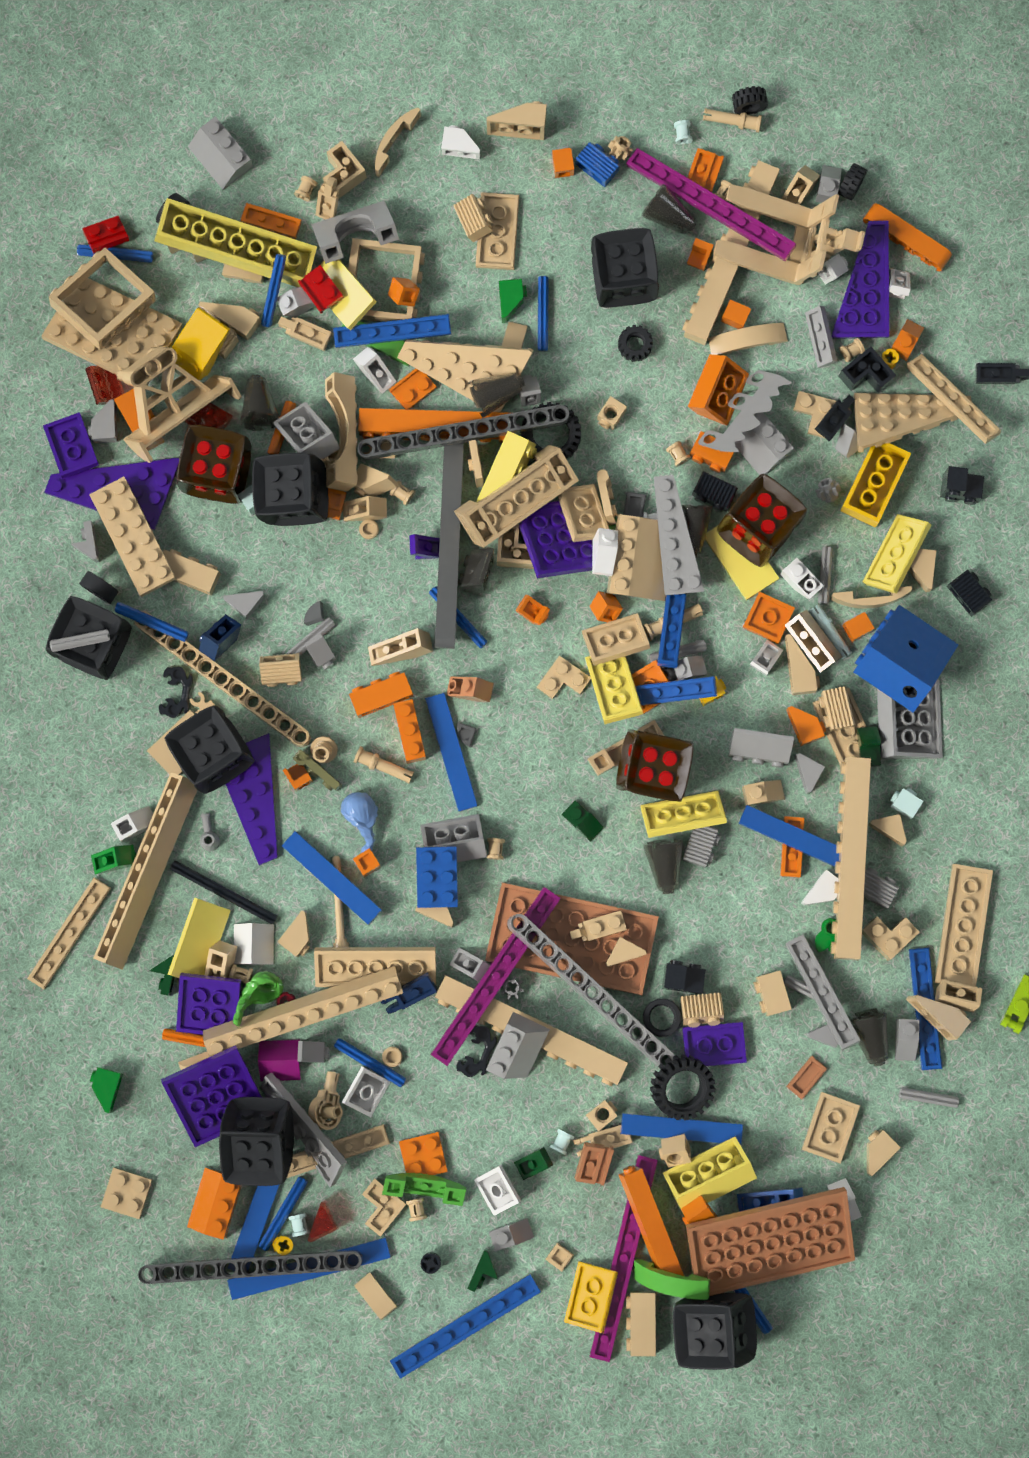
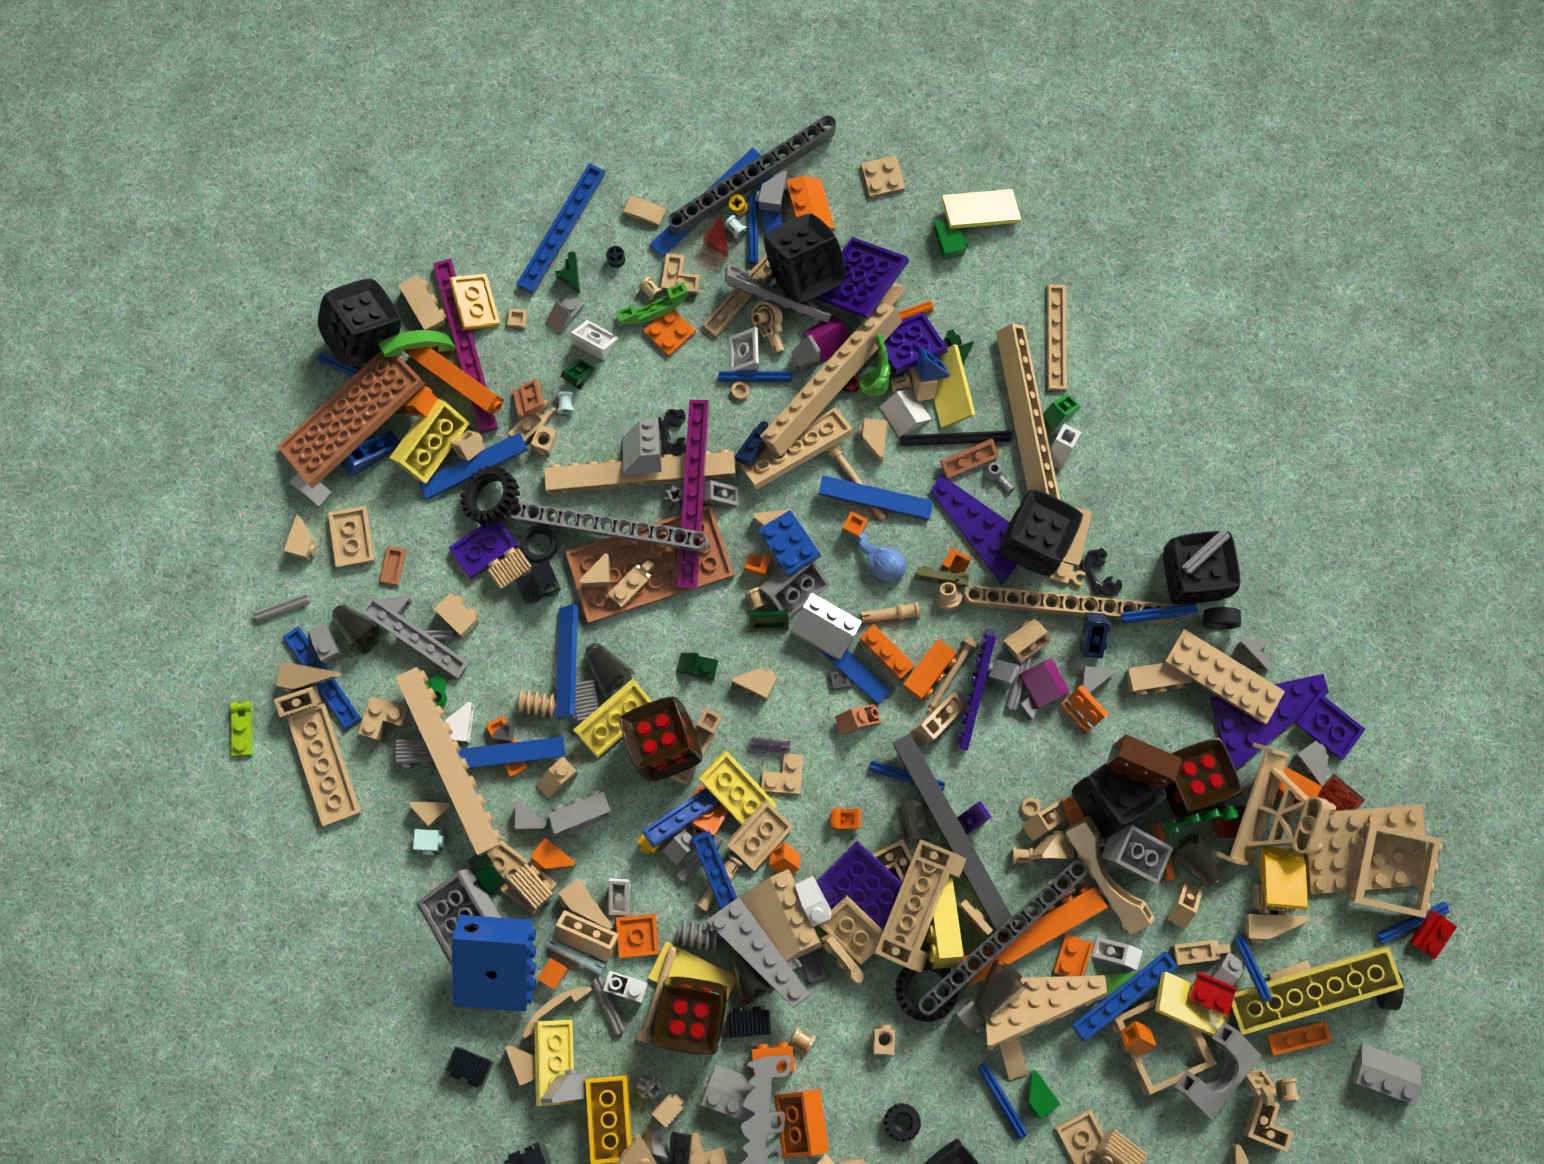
camera: 150 degrees right, 5 degrees down
(57, 1099) = (980, 209): none -> tile
(206, 965) = (930, 367): none -> blue slope
(224, 864) = (969, 458): none -> nougat plate
(243, 1235) = (772, 193): none -> light grey slope
(258, 490) = (1143, 762): none -> reddish brown brick
(261, 437) = (1172, 826): none -> green plant
(266, 582) = (1087, 706): none -> orange plate
(288, 624) = (1044, 683): none -> magenta slope
(292, 374) = (1185, 905): none -> tan slope
(332, 695) = (970, 643): none -> tan piece
(344, 658) = (977, 682): none -> dark purple wing
(449, 785) = (825, 626): none -> light grey slope
(474, 880) = (757, 564): none -> orange panel
(495, 822) = (769, 620): none -> dark green tile
(539, 773) = (757, 682): none -> tan slope
(560, 712) = (770, 745): none -> clear purple pin
(697, 889) = (566, 662): none -> blue tile
(717, 587) = (698, 936): none -> light grey piece
(744, 868) = (536, 704): none -> tan piece
(788, 858) = (505, 732): none -> dark grey tile
(807, 533) = (645, 1034): none -> tan piece
(822, 460) = (669, 1109): none -> tan brick
(899, 525) = (566, 1087): none -> light grey slope

